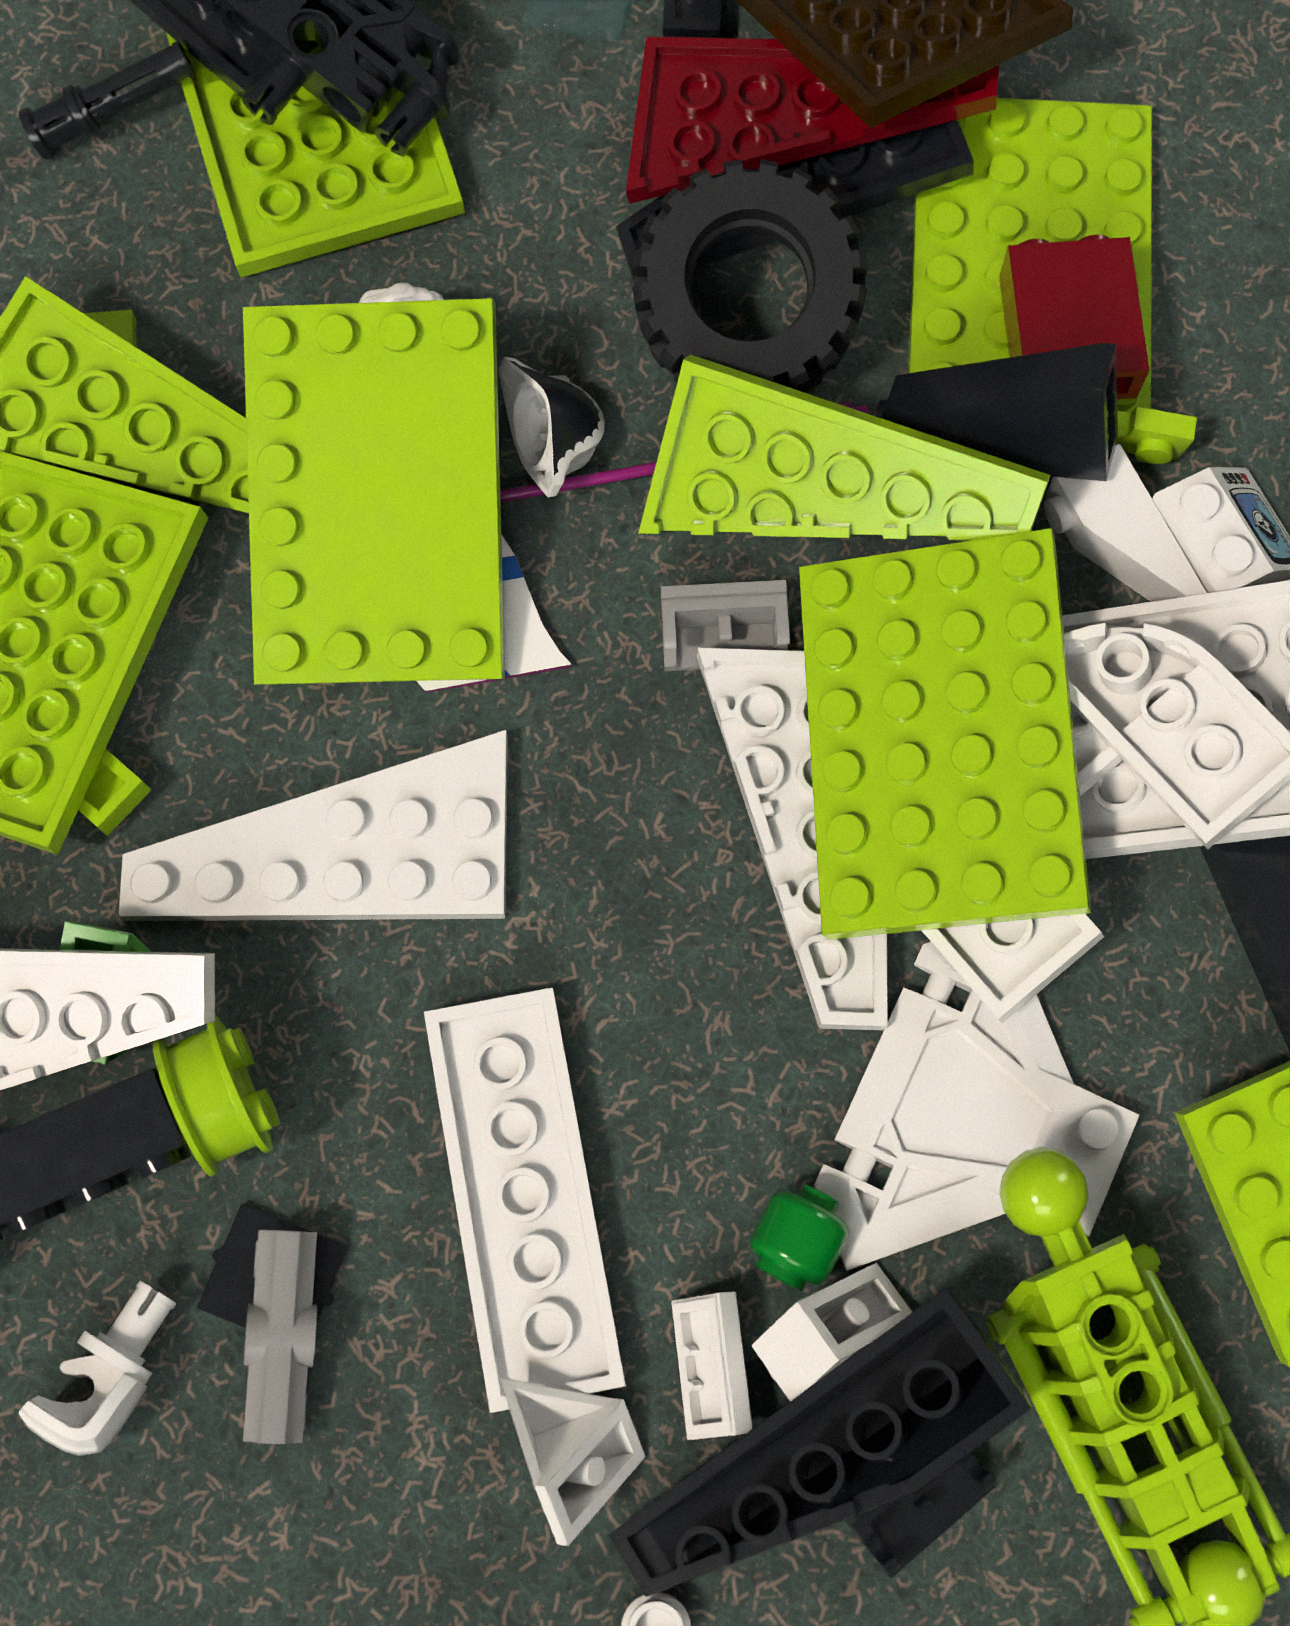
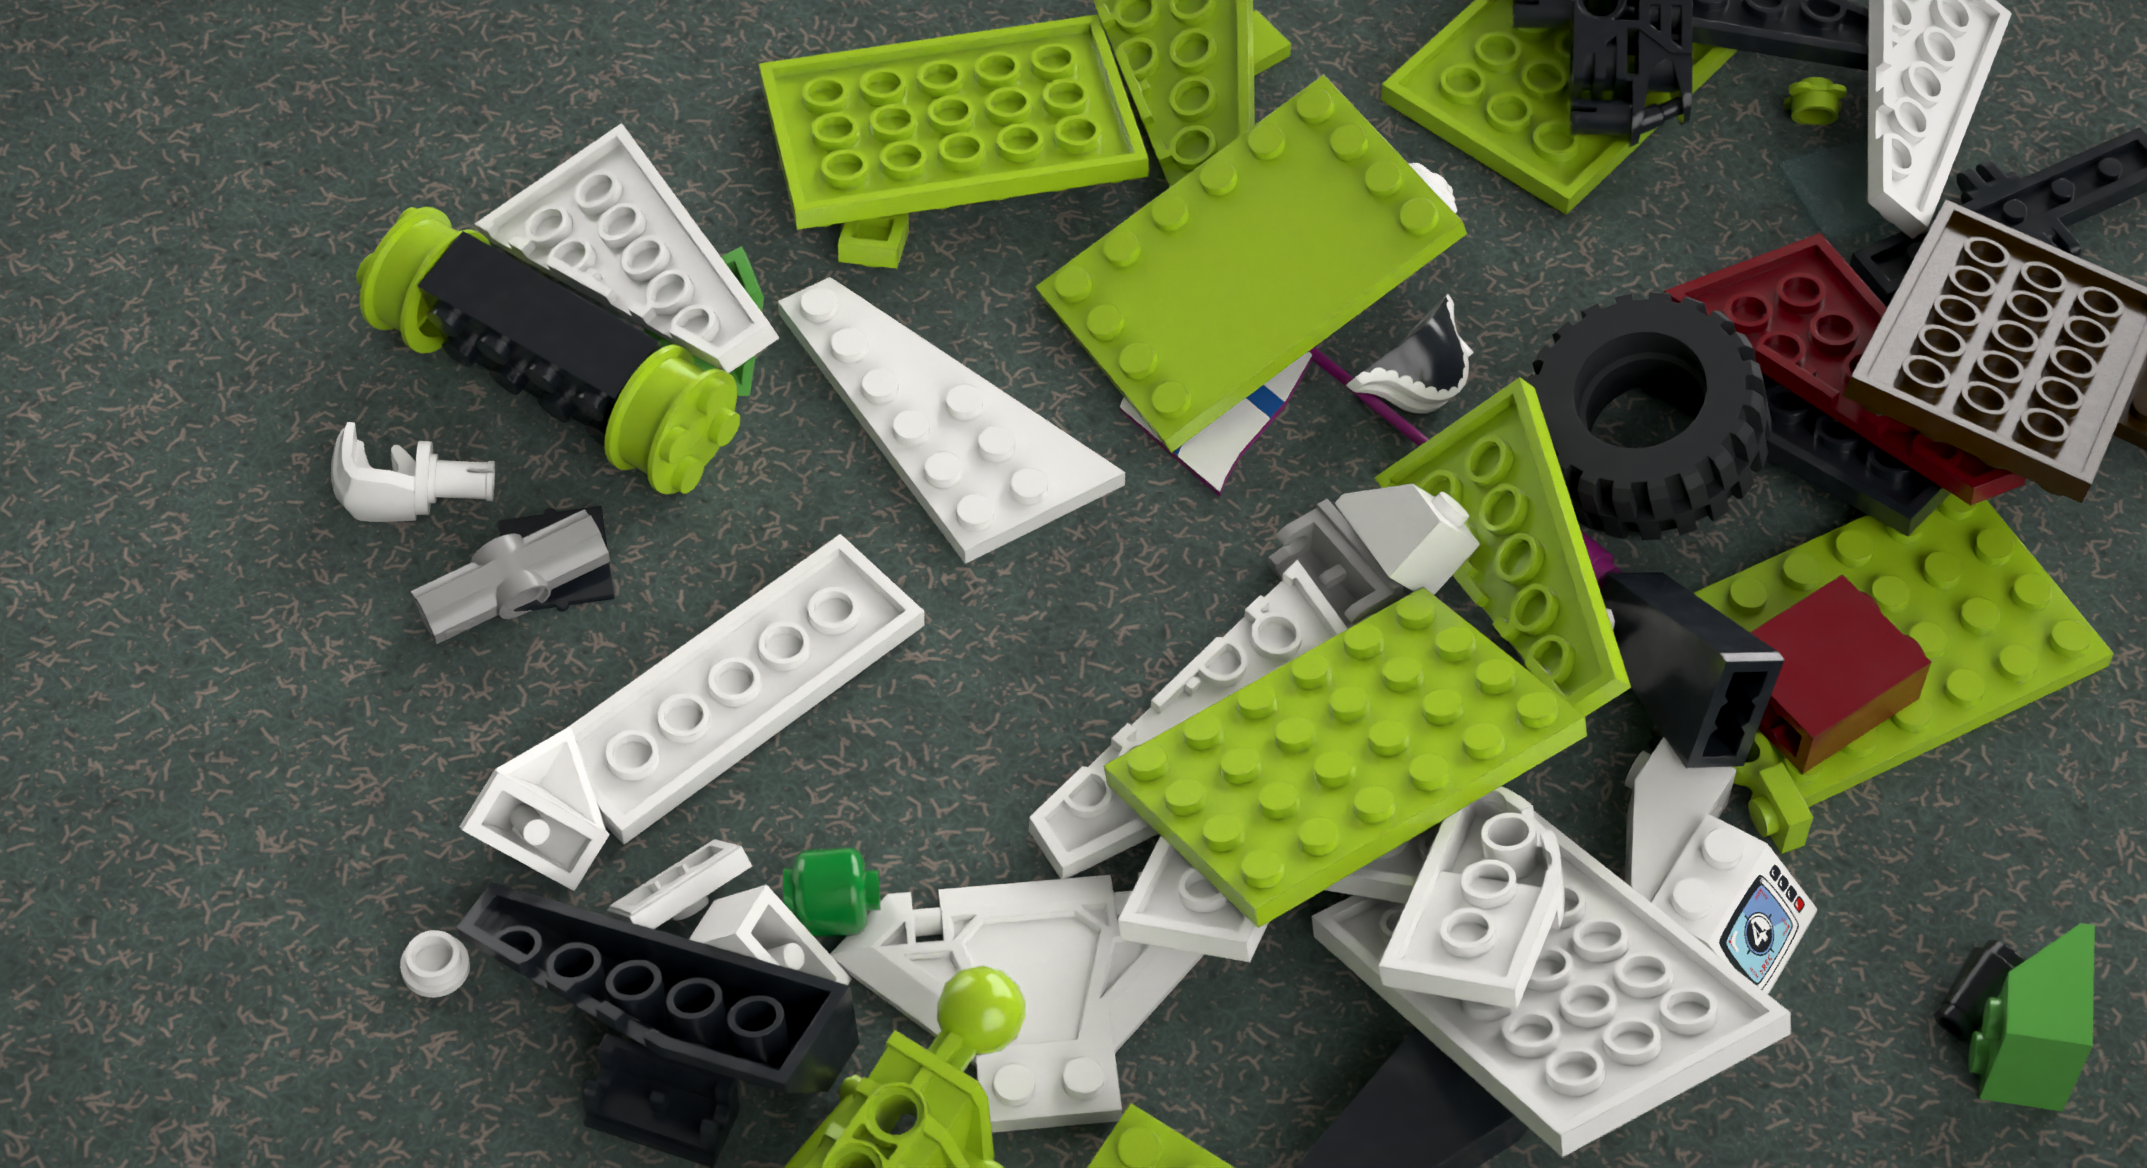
camera: 55 degrees right, 20 degrees down
(747, 545) = (1411, 533): none -> white slope

